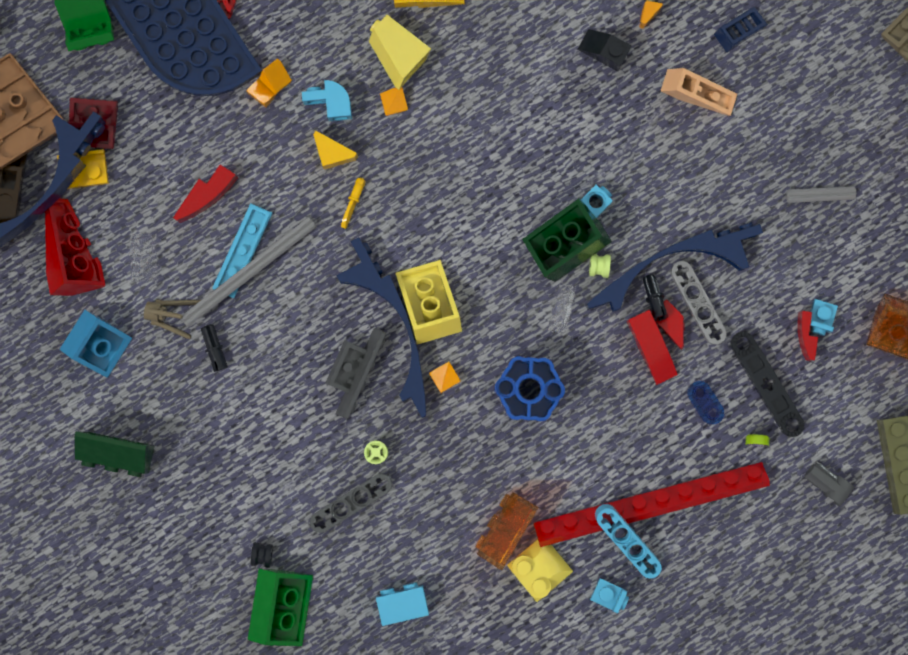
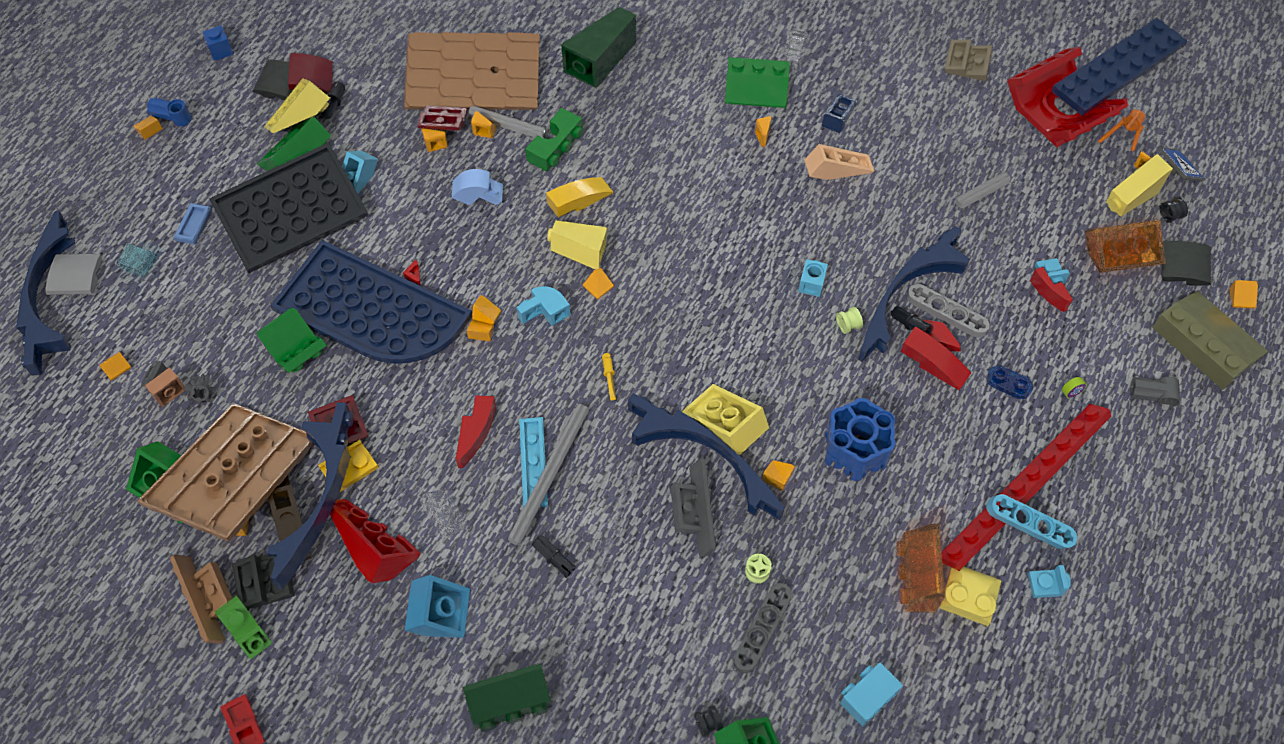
camera: 30 degrees left, 25 degrees down
(156, 312) = (482, 550): dark tan plant -> none
(332, 152) = (569, 343): yellow slope -> none
(561, 309) = (841, 368): clear slope -> none
(566, 240) = (811, 309): dark green slope -> none
(605, 48) = (746, 168): black slope -> none
(777, 398) = (1060, 348): black piece -> none

